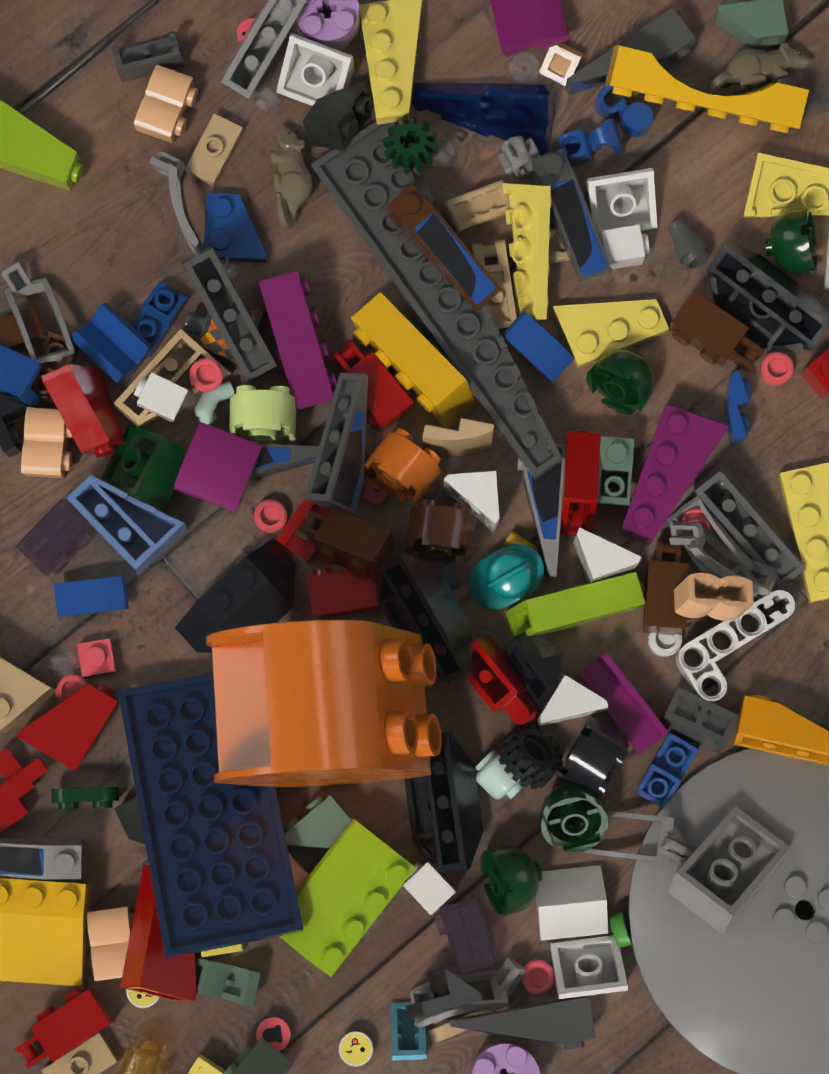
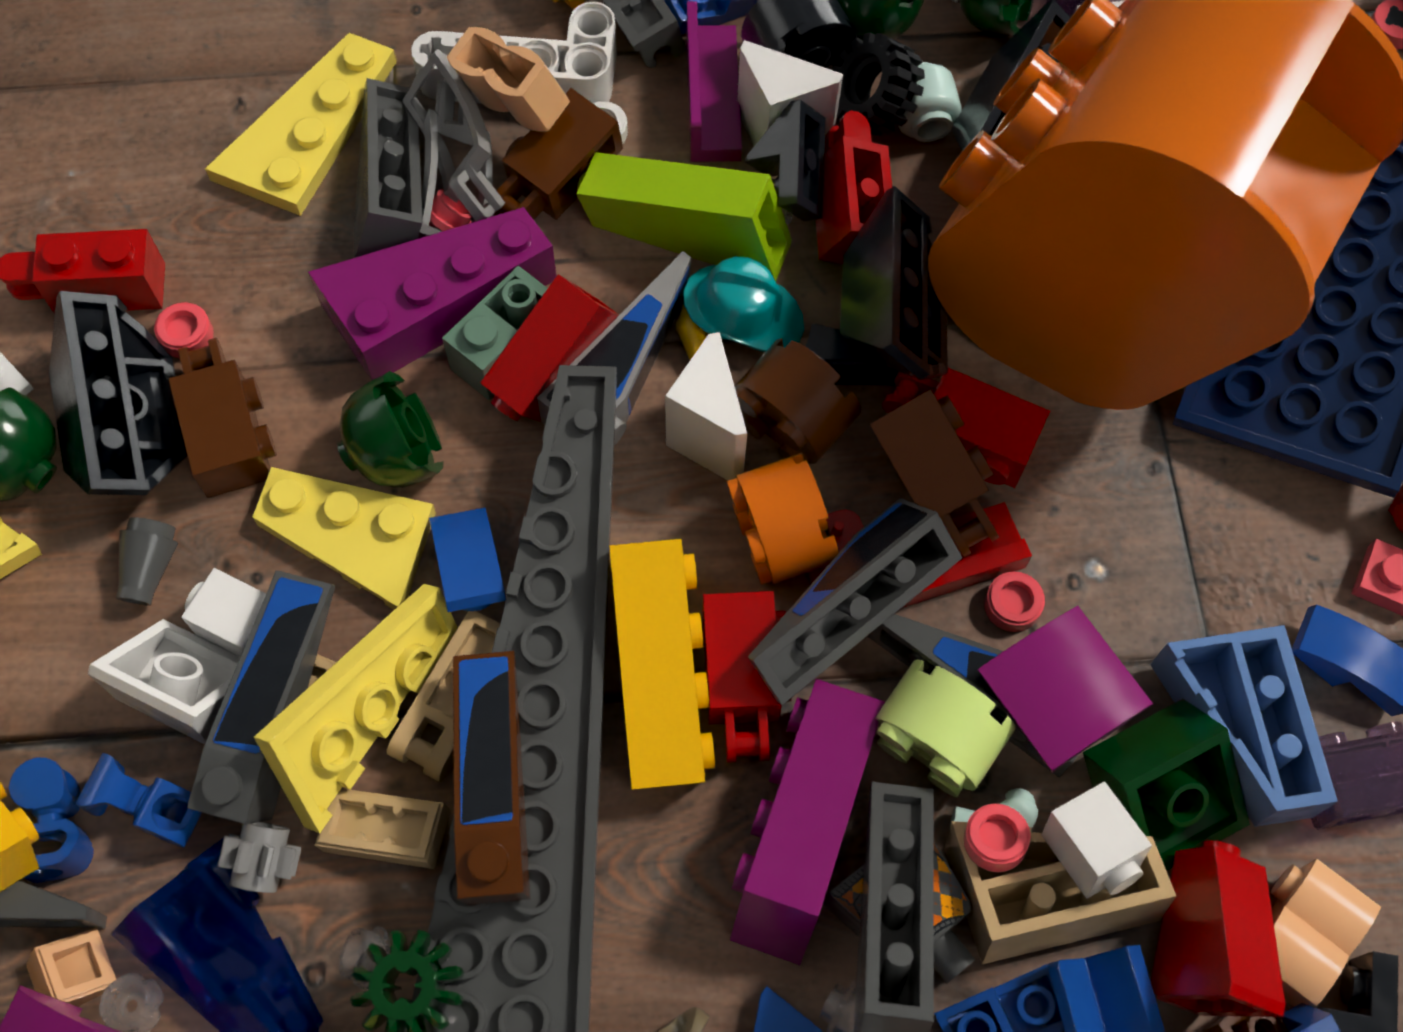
camera: 150 degrees left, 15 degrees down
(249, 595) = (1129, 509): black wedge -> none
(470, 438) = (674, 494): tan slope -> none
(602, 558) = (606, 228): white slope -> none
(736, 398) = (272, 319): blue slope -> none

